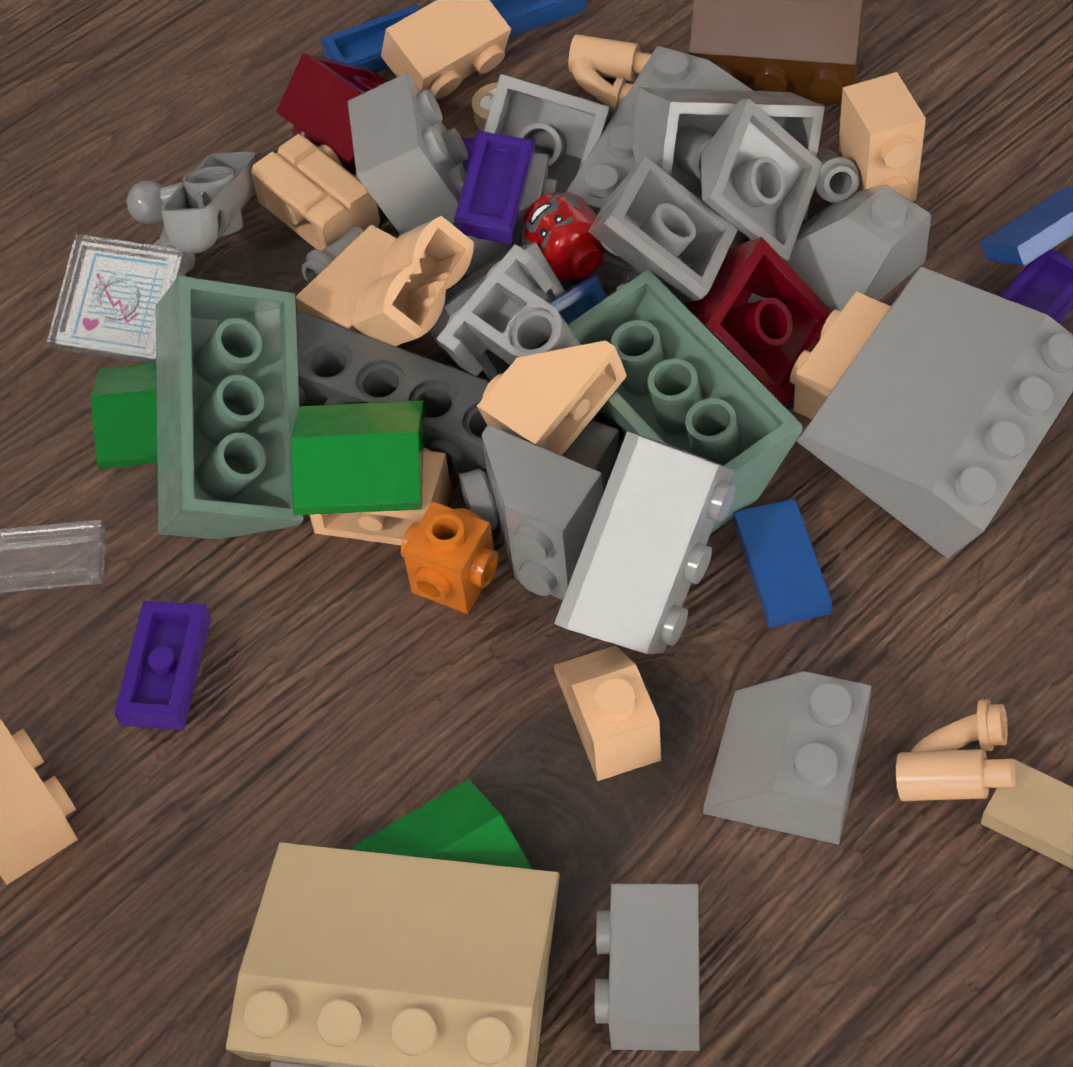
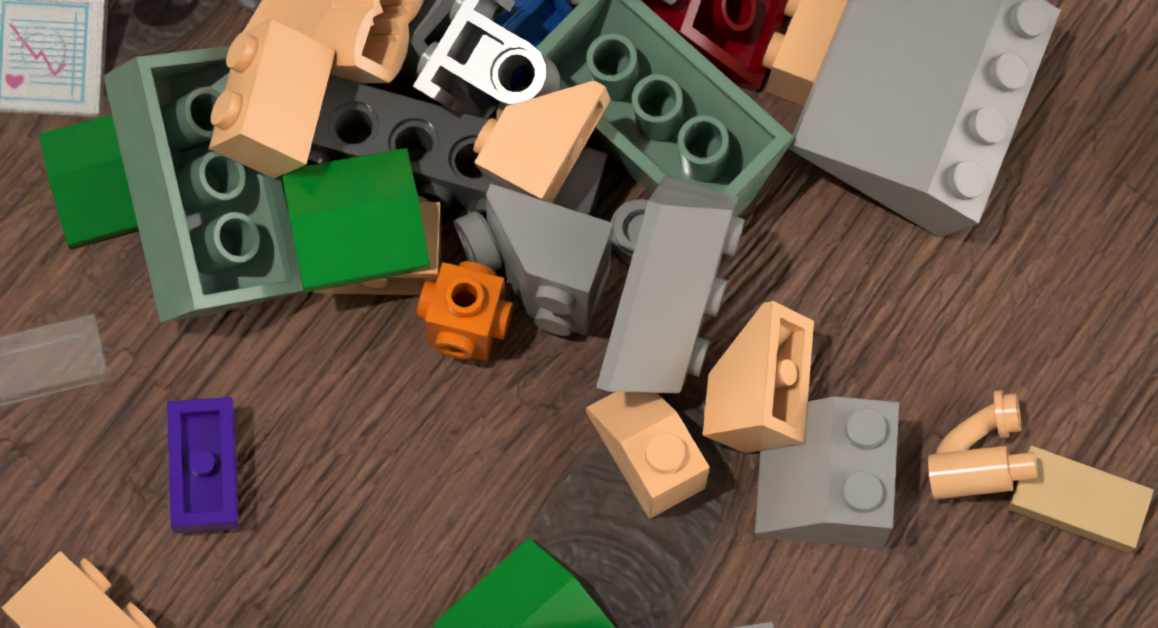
camera: 20 degrees left, 15 degrees up
(300, 336) = (271, 98): none -> light nougat brick
(733, 655) = (762, 383): none -> light nougat slope
(782, 563) = (786, 262): blue tile -> none

